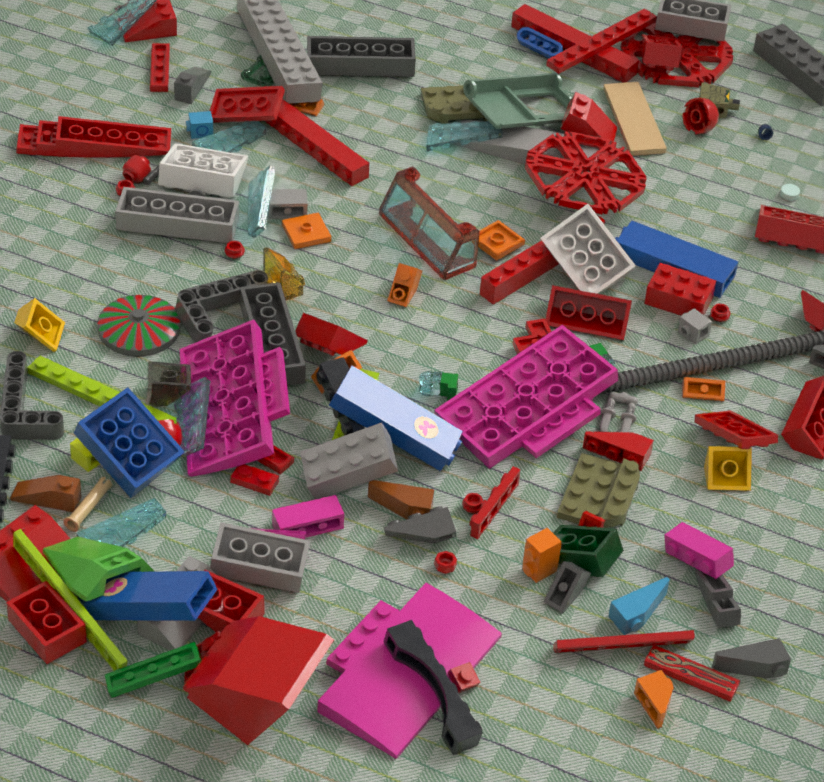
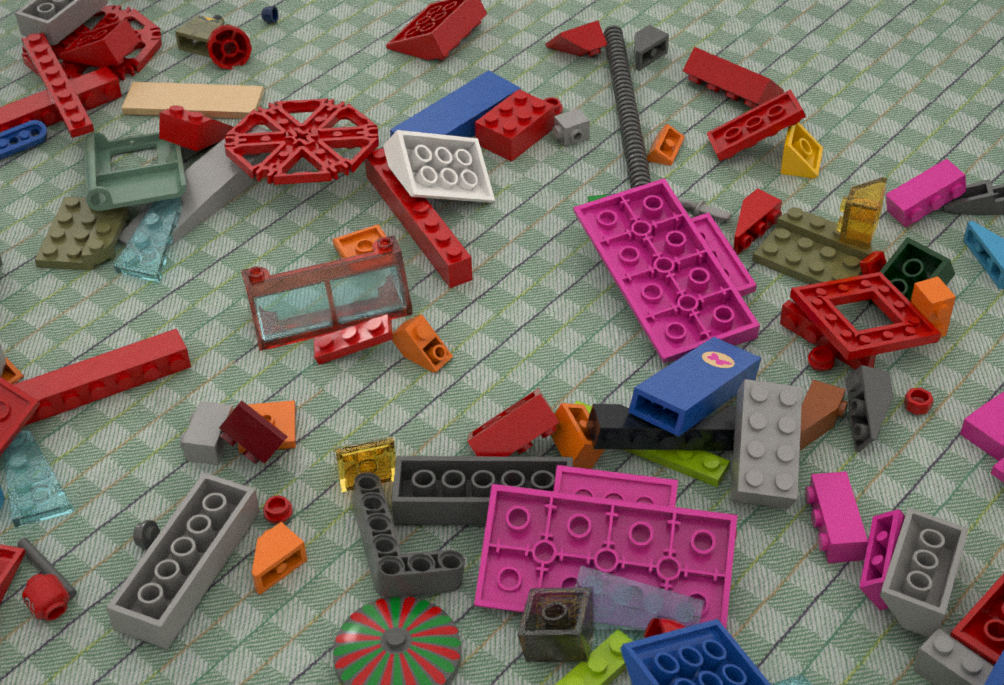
camera: 70 degrees left, 0 degrees up
(123, 183) = (79, 621): red plate -> none
(192, 254) = (276, 556): none -> orange slope
(202, 169) = (91, 513): white slope -> none
(255, 479) = (749, 562): red plate -> none
(258, 201) = (186, 456): clear light blue wing -> none
(283, 214) = (252, 433): none -> dark red slope
(395, 249) = (353, 339): none -> red plate
(438, 384) = (612, 347): leg -> none
(518, 477) = (909, 325): none -> red plate
(536, 329) = (558, 247): red plate -> none
(566, 586) = (970, 305): dark grey slope -> none
(588, 312) = (523, 200): red slope -> none
(626, 493) = (861, 213): none -> clear yellow slope
(790, 192) = (375, 22): light aqua tile -> none

